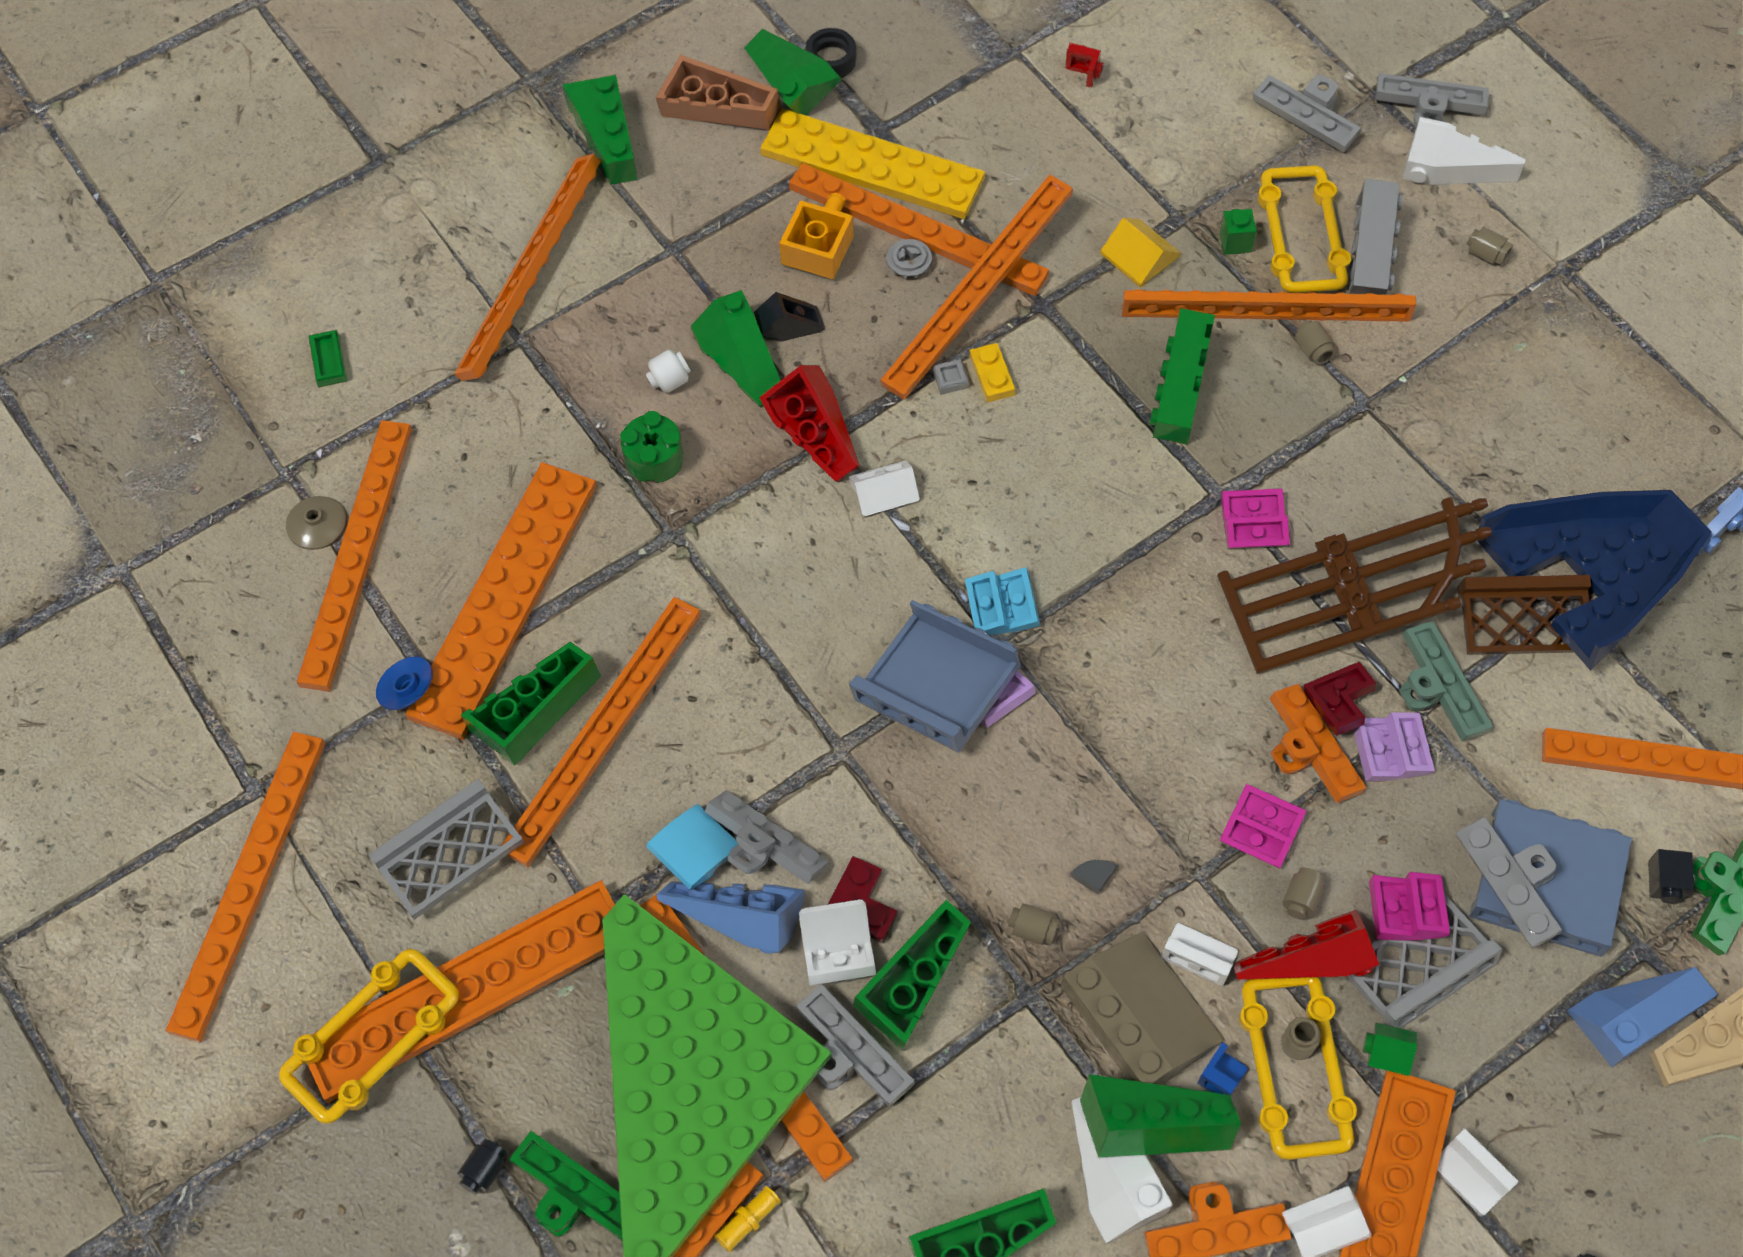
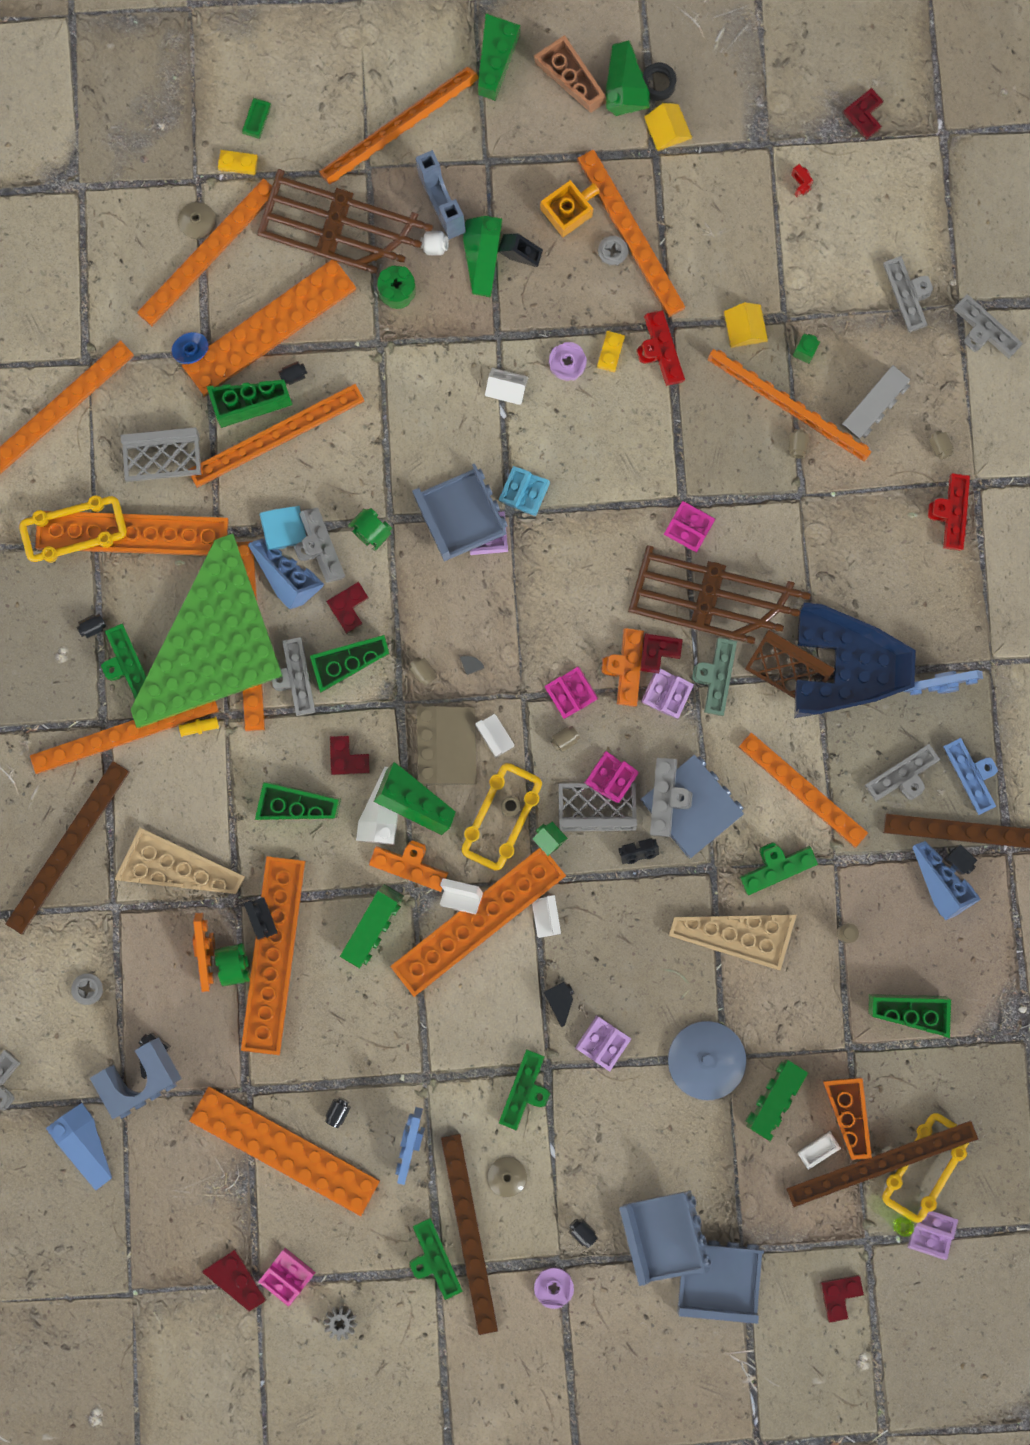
camera: 25 degrees right, 20 degrees up
(332, 422) = (237, 162): none -> yellow plate
(516, 418) = (334, 223): none -> reddish brown piece
(577, 629) = (293, 373): none -> black brick
(667, 322) = (445, 208): none -> sand blue arch
(811, 415) = (494, 317): red wedge -> none
(824, 769) = (370, 528): none -> green brick
(837, 942) = (320, 622): white bracket -> none
(873, 163) = (634, 173): yellow plate -> none
(875, 94) = (667, 126): none -> yellow slope
(939, 427) = (571, 371): none -> lavender plate
(950, 376) = (587, 339): light grey tile -> none
(976, 287) = (636, 294): orange plate -> none
(1004, 1133) = (342, 762): none -> dark red plate
(1055, 332) = (661, 348): none -> red plate
(1182, 376) = (708, 421): green wedge -> none
(1222, 1073) = (464, 798): blue panel -> none
(1283, 262) = (842, 337): yellow bar -> none
(1335, 950) = (554, 775): red wedge -> none
(1449, 157) = (955, 372): white wedge -> none
(1536, 979) = (647, 850): none -> black hinge
(1567, 309) = (953, 511): none -> red plate
(1636, 1013) = (681, 894): medium blue wedge -> none
(1671, 875) = (751, 843): black brick -> none

